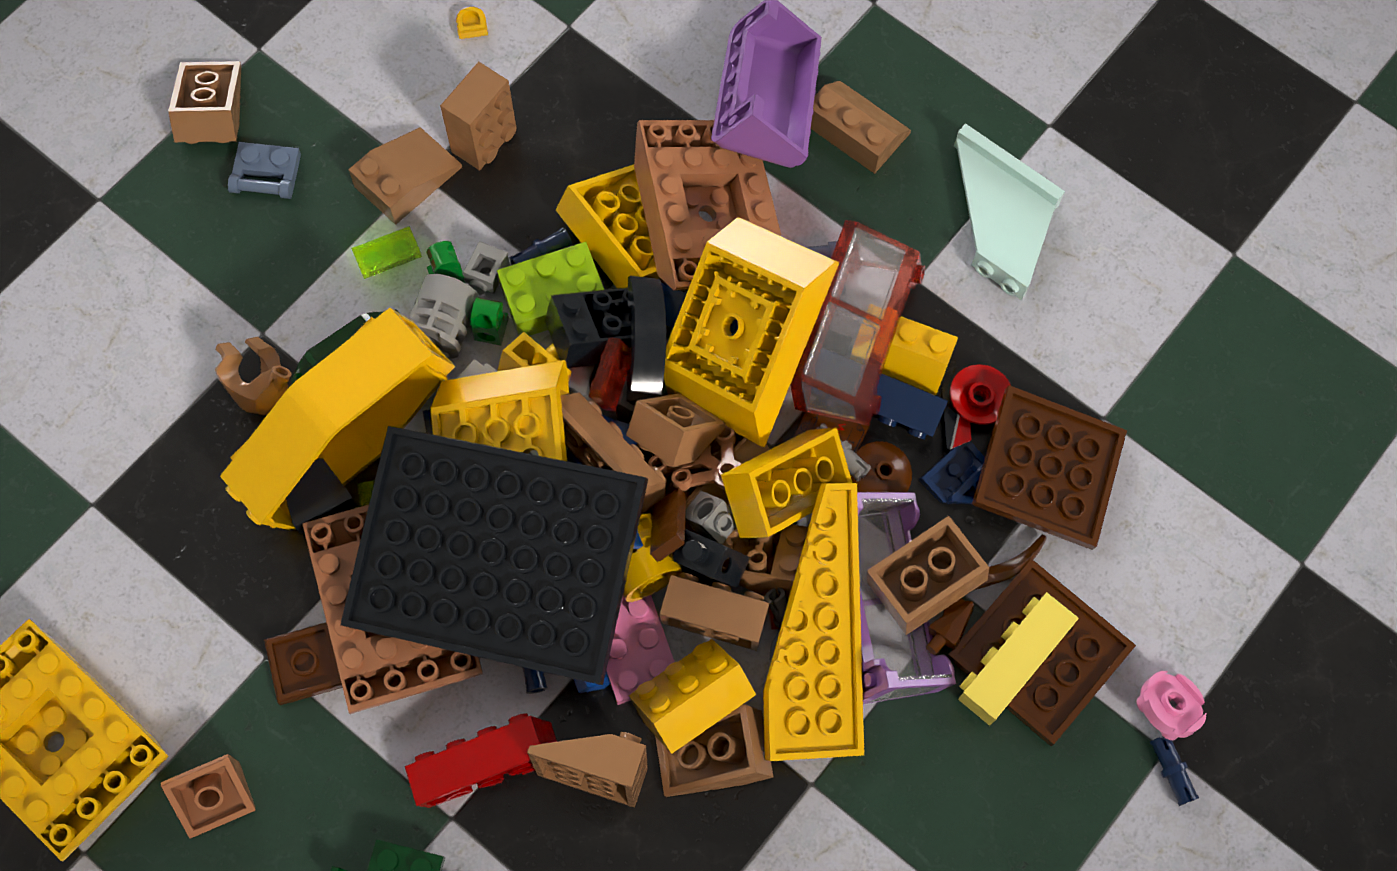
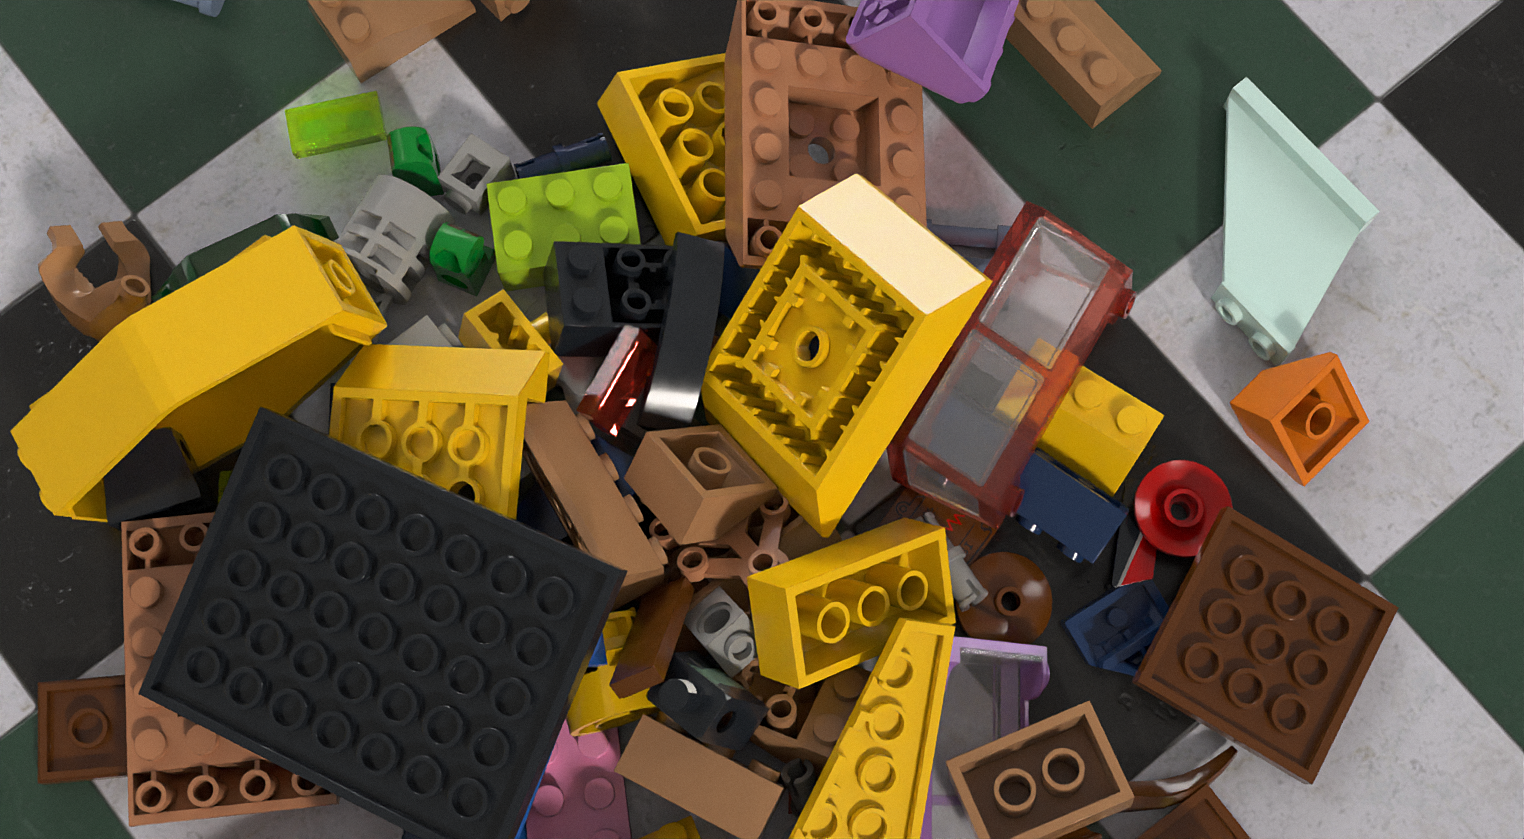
camera: 15 degrees right, 5 degrees up
(1042, 323) = (1301, 413): none -> orange slope

